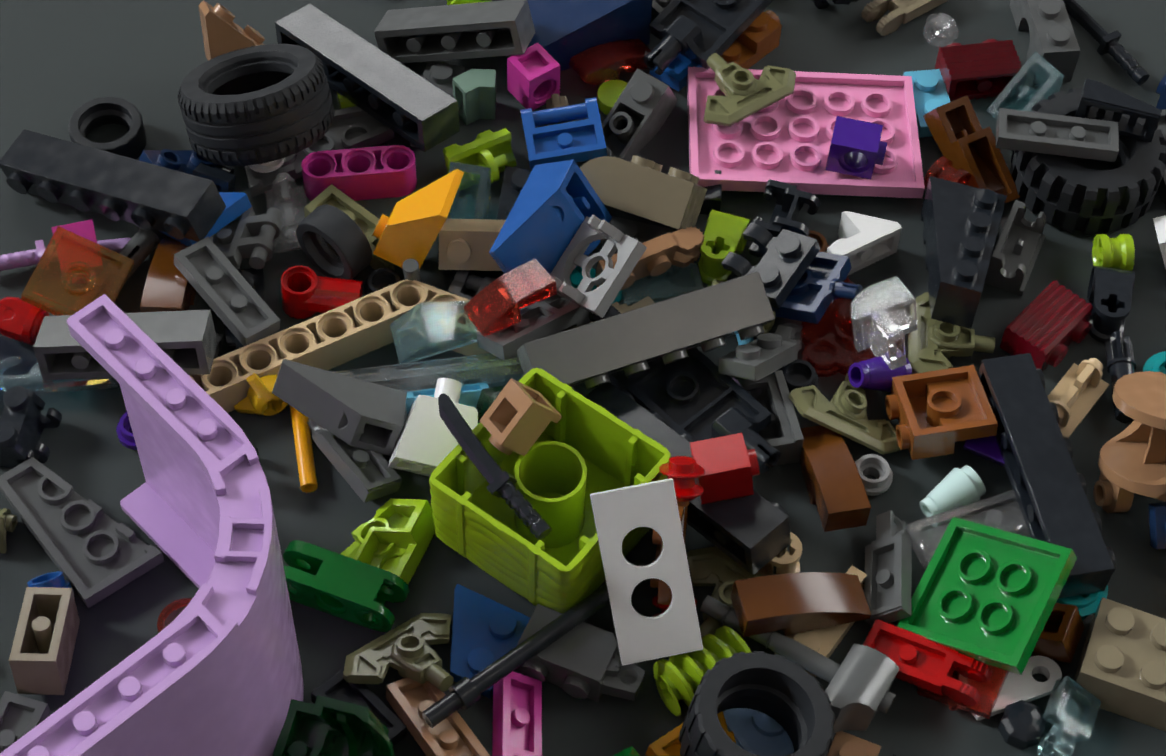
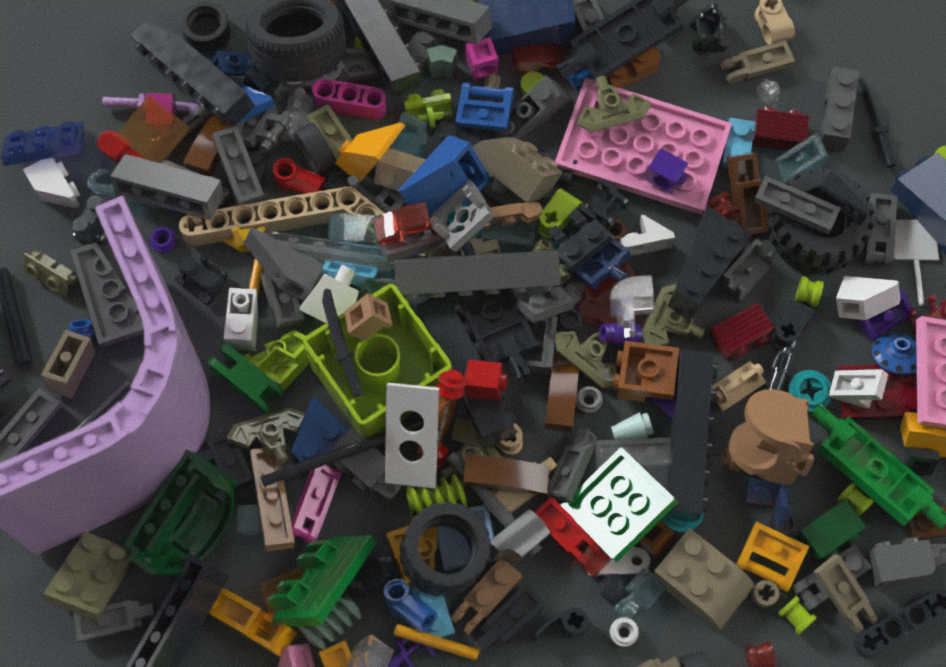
camera: 20 degrees right, 15 degrees up
(305, 499) = (241, 319): none -> white slope

